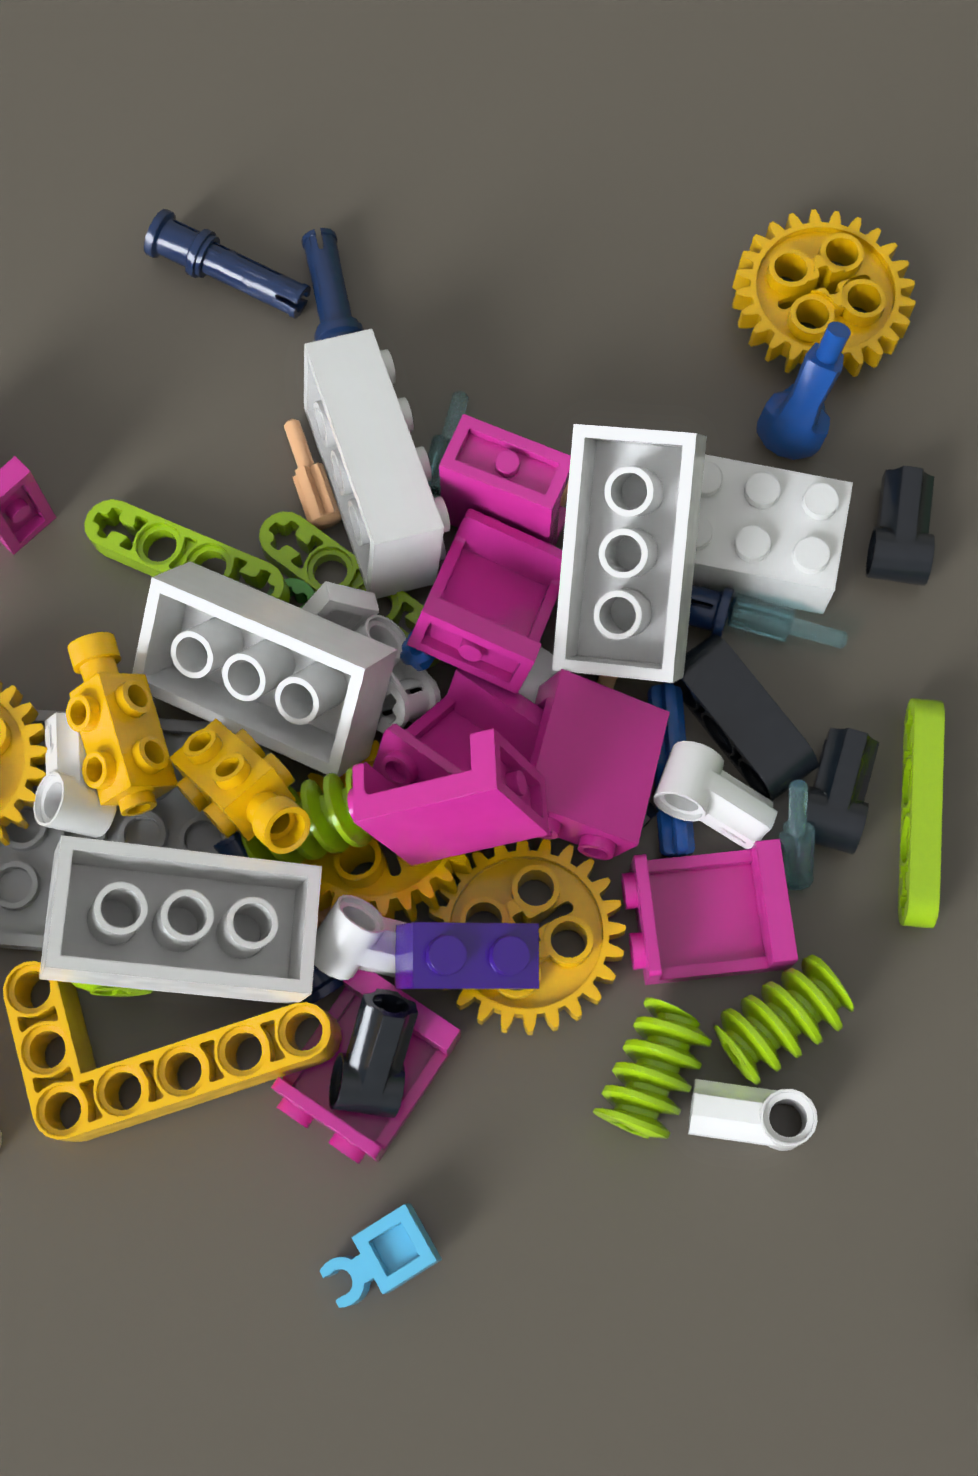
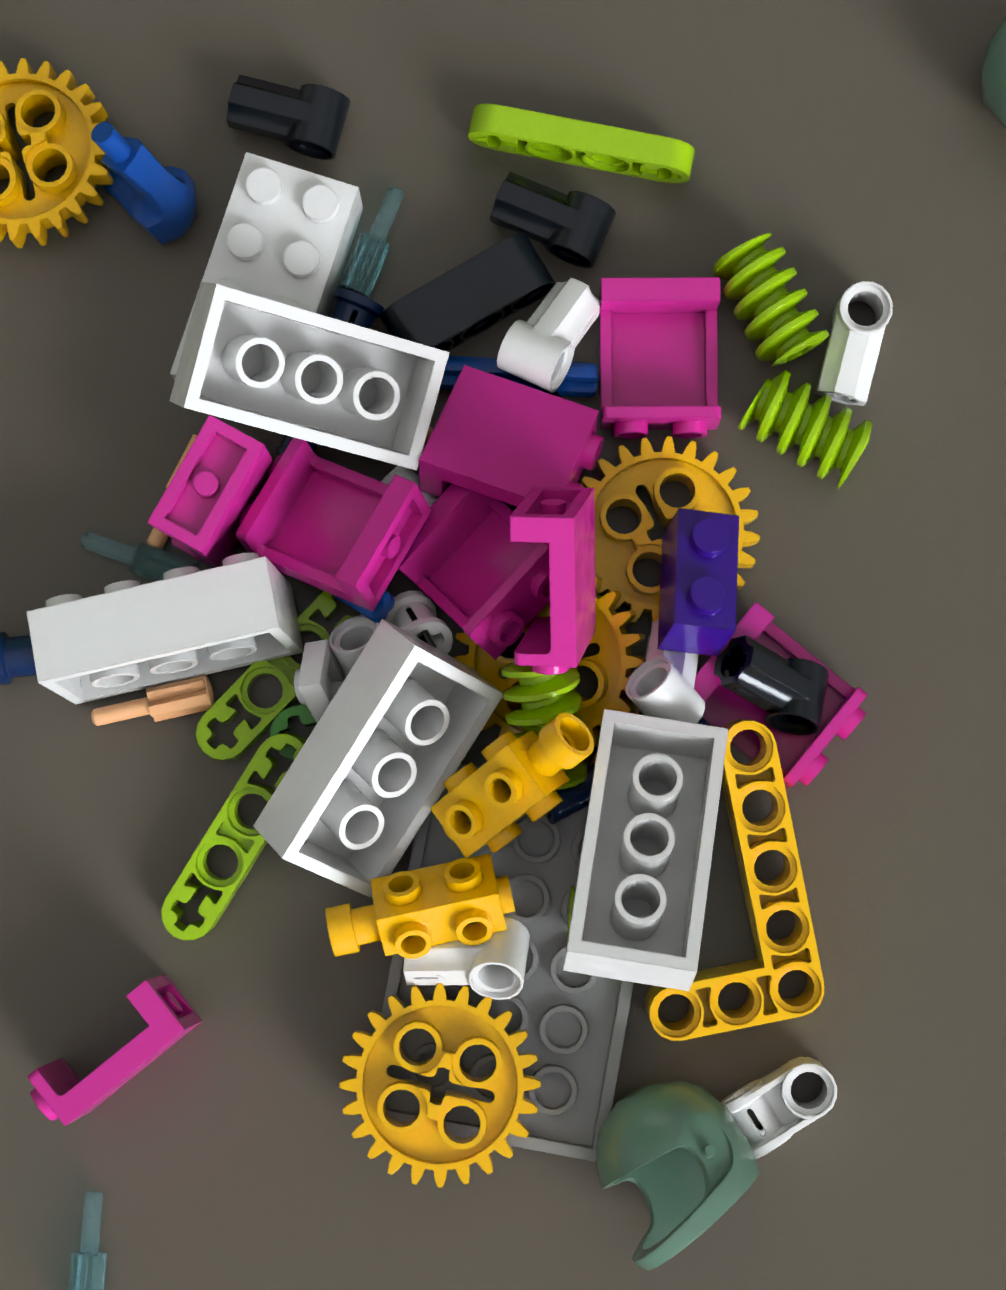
camera: 80 degrees left, 10 degrees up
(390, 1254) = (948, 692): medium azure plate -> none
(798, 839) = (600, 260): clear light blue axle -> none

